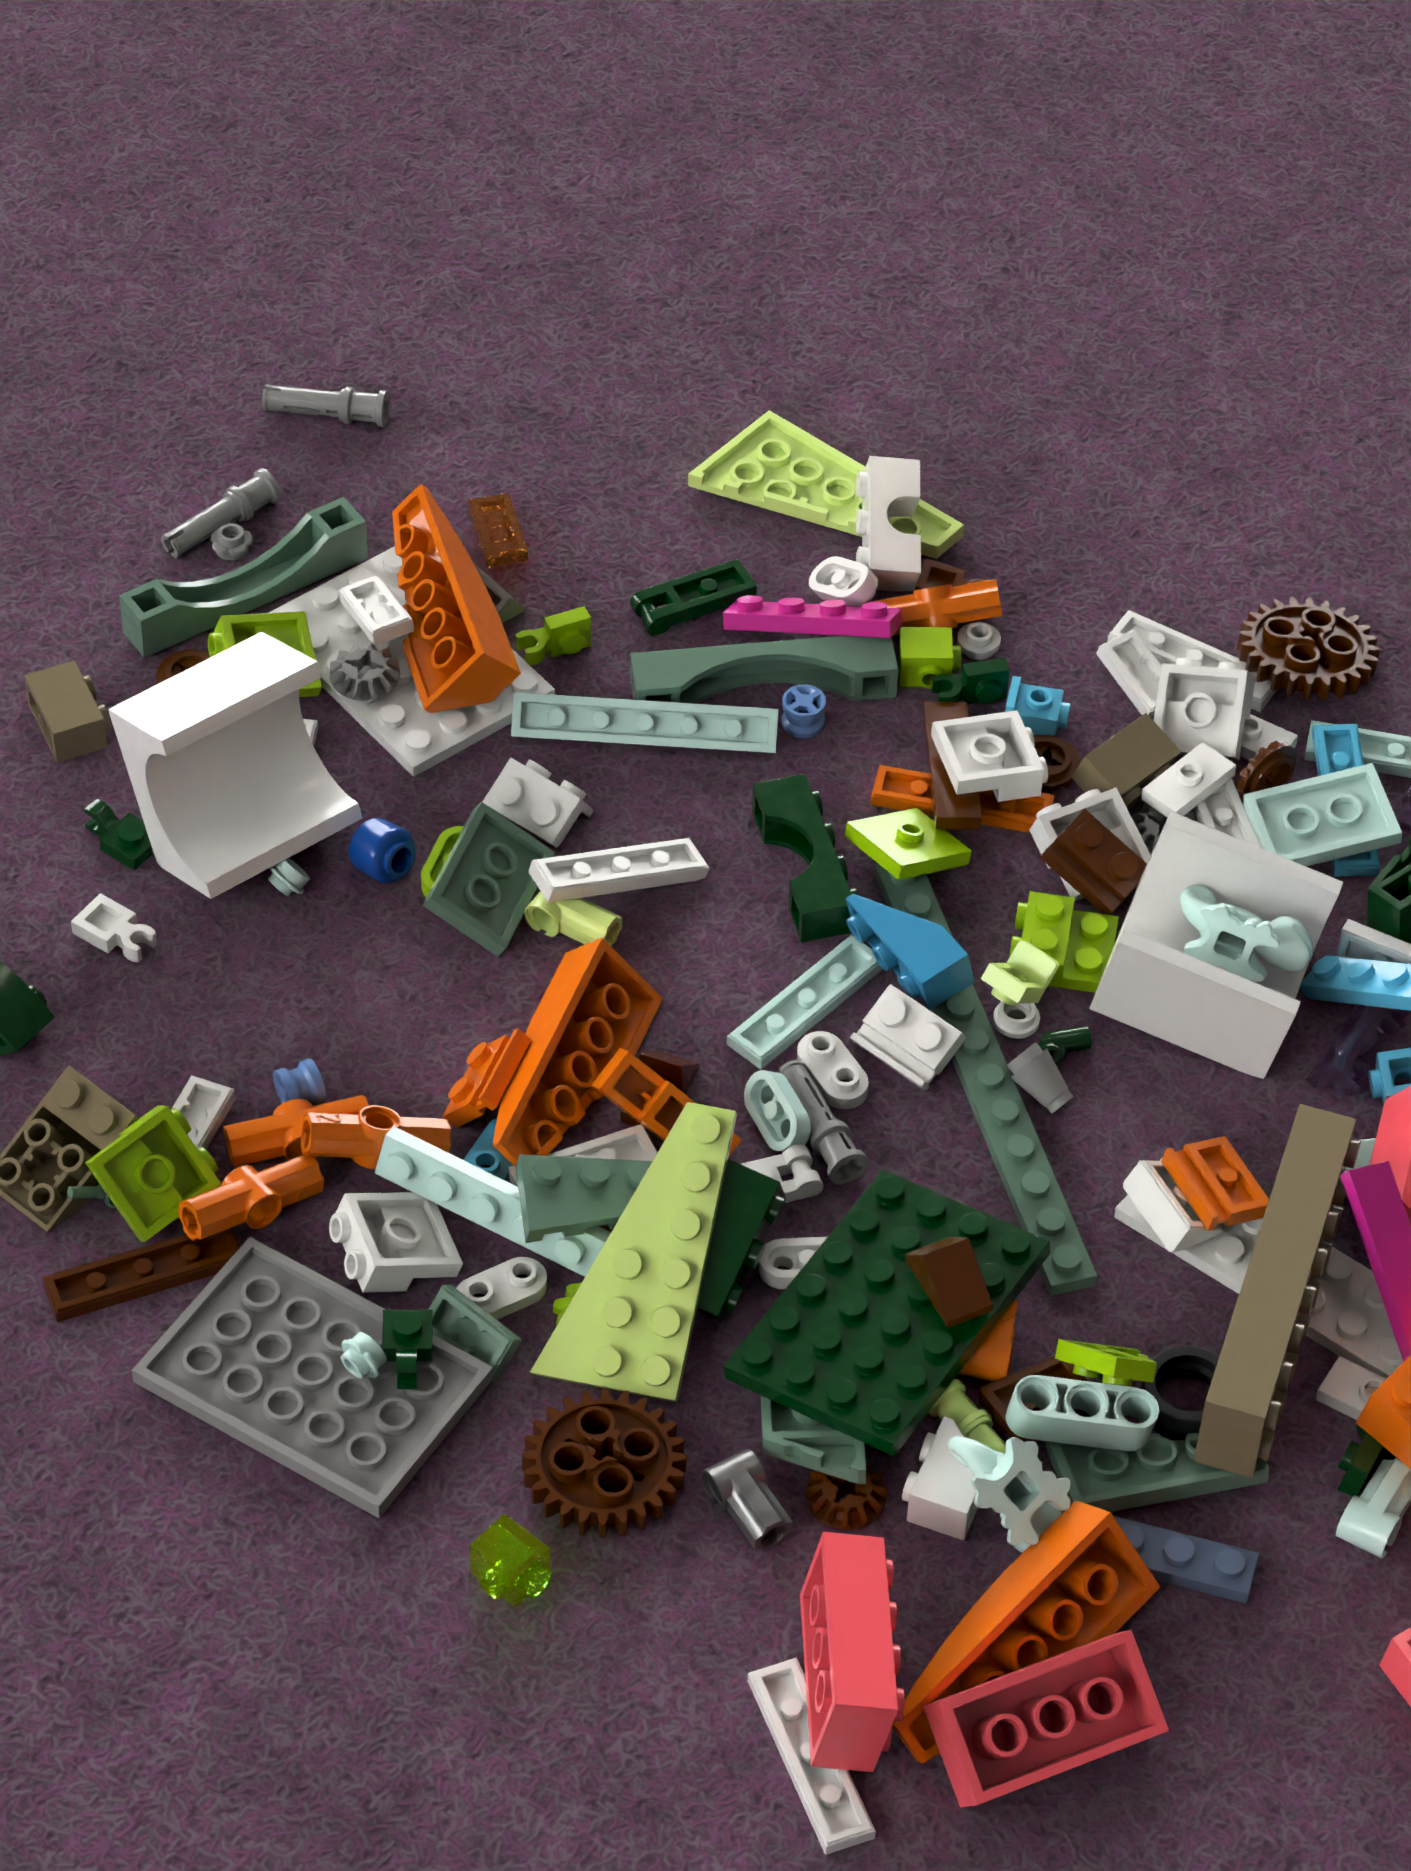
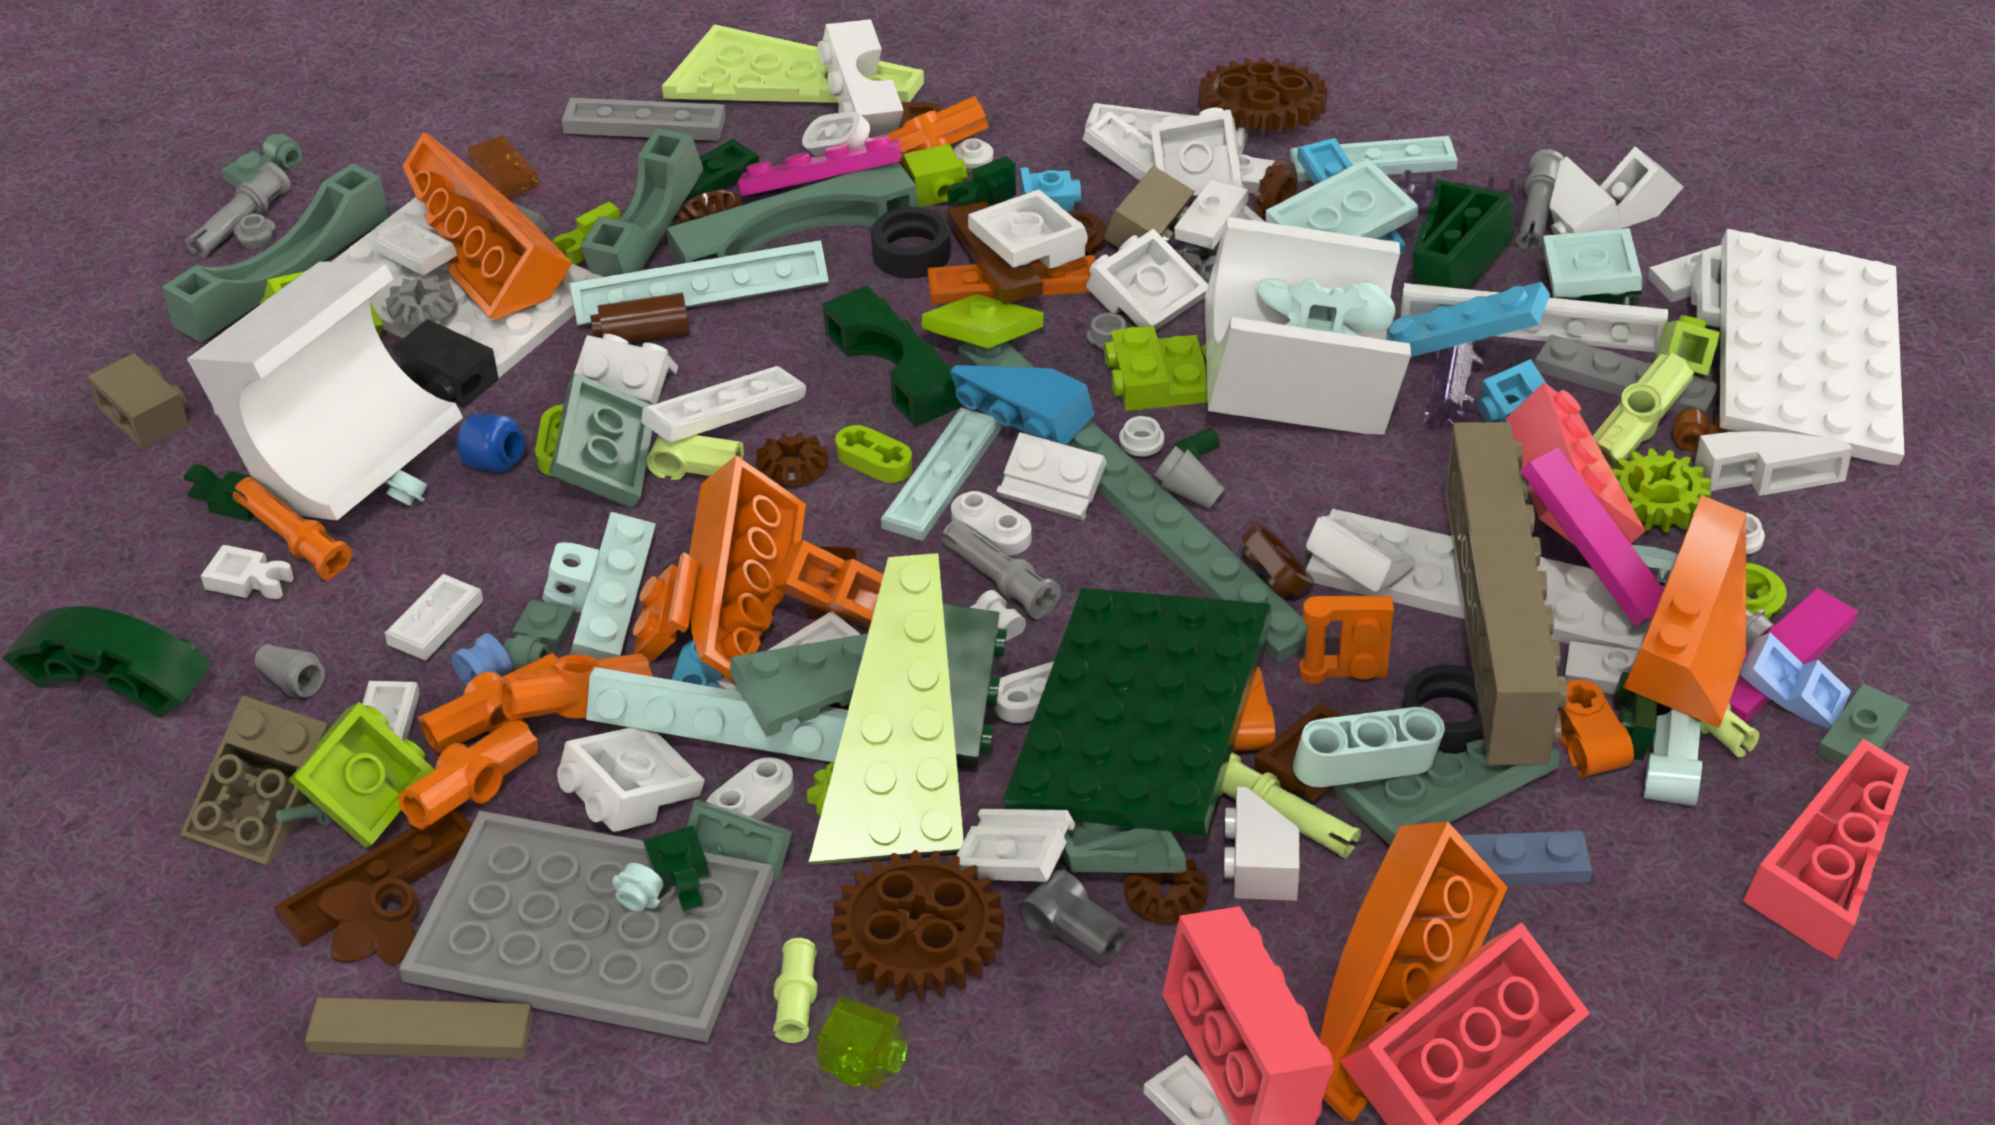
camera: 15 degrees left, 5 degrees down
(117, 1320) = (365, 925): none -> reddish brown plate
(125, 1042) = (291, 670): none -> light grey cone
(134, 1430) = (419, 1028): none -> dark tan tile
(177, 906) = (304, 537): none -> orange pin
(242, 465) = (277, 150): none -> sand green plate
(272, 1023) = (434, 617): none -> white plate
(345, 405) = (325, 103): light grey pin -> none
(364, 1064) = (538, 630): none -> sand green plate
(367, 749) = (447, 363): none -> pearl dark grey brick
(438, 1035) = (603, 585): none -> light aqua plate
(472, 1493) = (795, 990): none -> yellowish green pin
(573, 749) = (642, 318): none -> reddish brown brick
(648, 593) = (665, 177): none -> sand green arch
(658, 508) = (642, 117): none -> light grey plate
(659, 959) = (792, 471): none -> reddish brown gear
(682, 637) = (707, 204): none -> reddish brown gear
(719, 1412) = (1016, 843): none -> white plate
(742, 966) = (872, 456): none -> lime beam
(776, 1110) = (965, 572): light aqua plate -> none
(803, 711) = (841, 242): medium blue wheel -> none
(868, 753) = (914, 261): none -> black tyre
(951, 1279) = (1197, 656): reddish brown slope -> none
(1014, 1486) = (1338, 827): light aqua animal -> none
(1023, 976) = (1137, 396): yellowish green bracket -> none
(1030, 880) = (1102, 326): none -> light grey plate
(1090, 1190) = (1270, 552): none -> reddish brown plate
(1095, 862) = (1159, 294): reddish brown plate -> none
(1114, 1363) = (1357, 697): lime wing -> none
(1129, 1297) = (1362, 637): none -> orange plate
(1216, 1182) = (1395, 520): orange plate -> none
(1312, 1454) = (1592, 731): none -> orange piece

